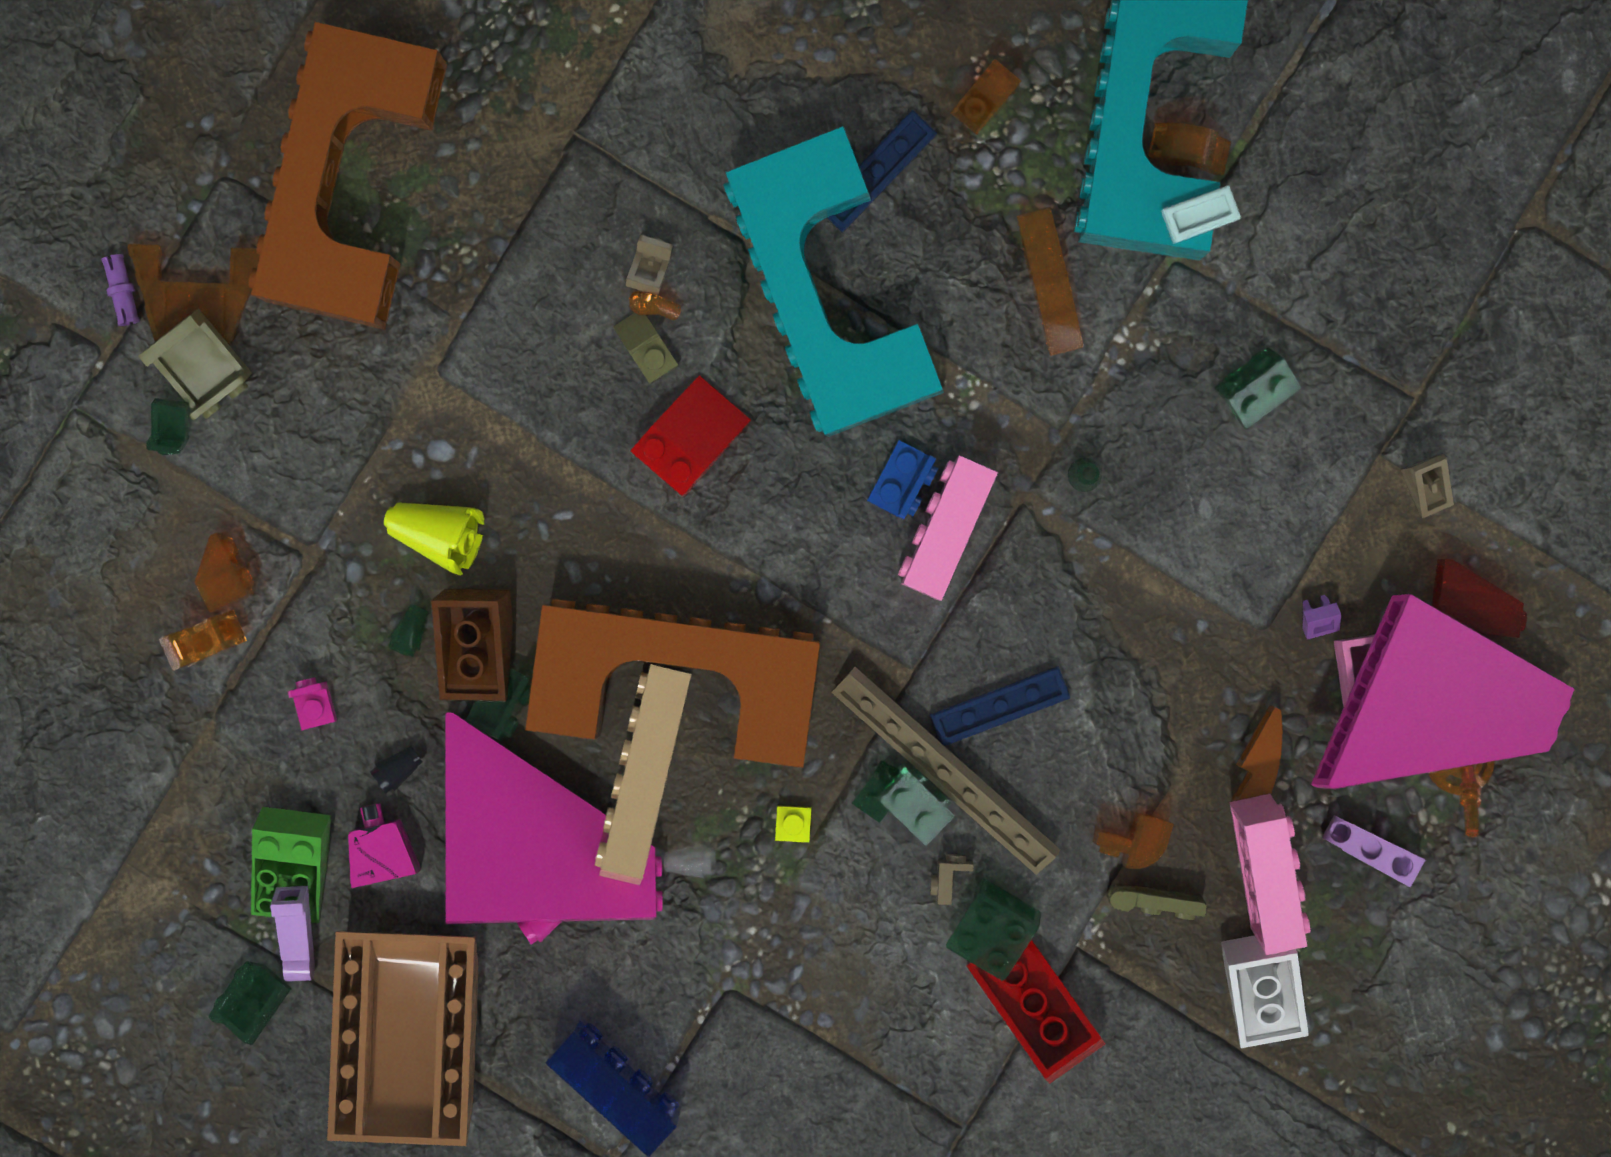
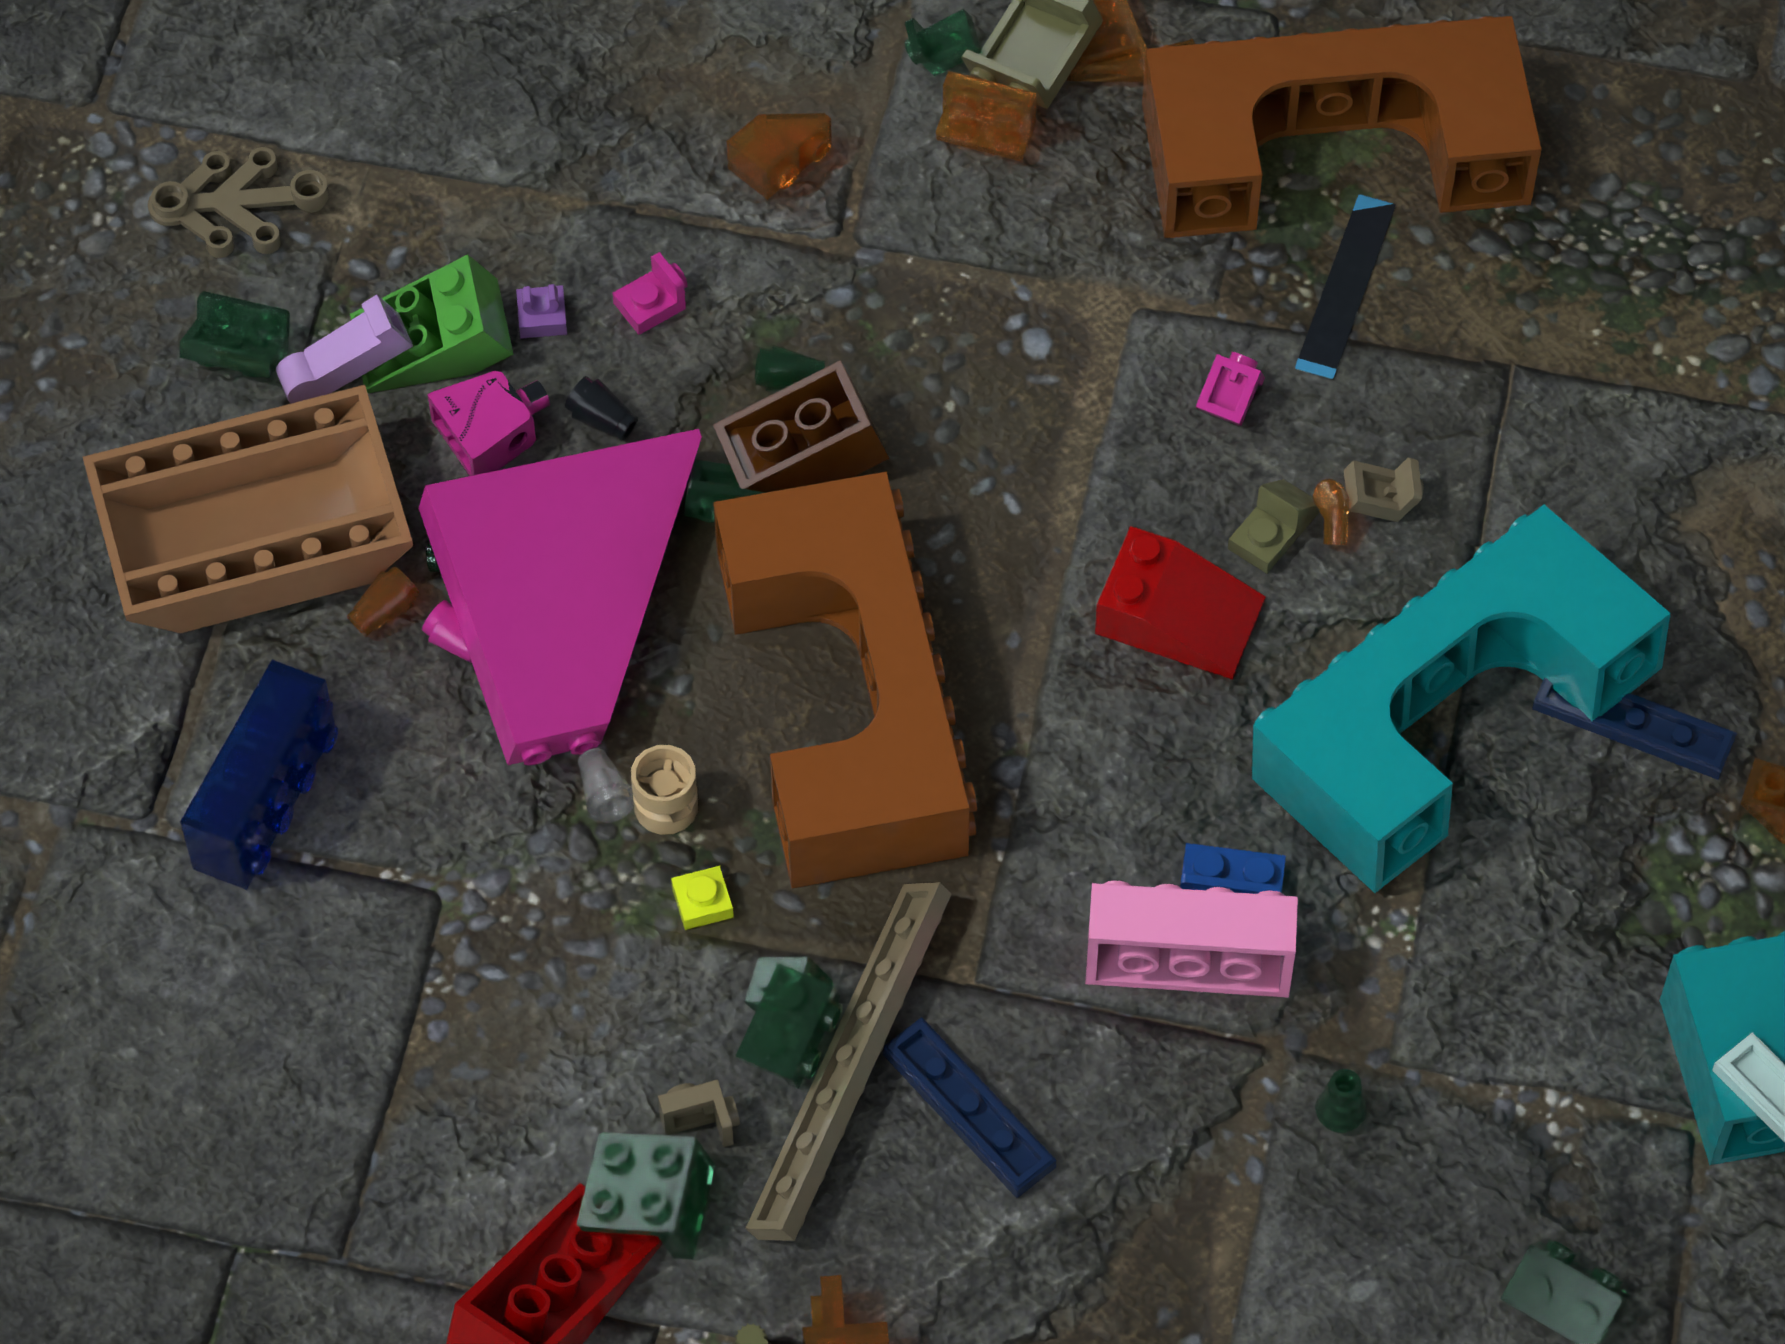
camera: 70 degrees right, 30 degrees down
(125, 970) = (232, 200): none -> dark tan plant
(203, 640) = (682, 152): clear orange brick -> none
(249, 421) = (987, 116): none -> clear orange bracket
(297, 782) = (541, 311): none -> medium lavender tile
(438, 532) = (931, 362): neon yellow cone -> none
(469, 220) = (1345, 287): none -> black sticker
(498, 962) = (383, 601): none -> clear orange cone
(531, 335) = (1230, 387): none -> dark pink bracket
(645, 774) = (704, 663): tan brick -> none
(713, 825) = (664, 789): none -> tan wheel
(1050, 281) = (1587, 969): clear orange slope -> none

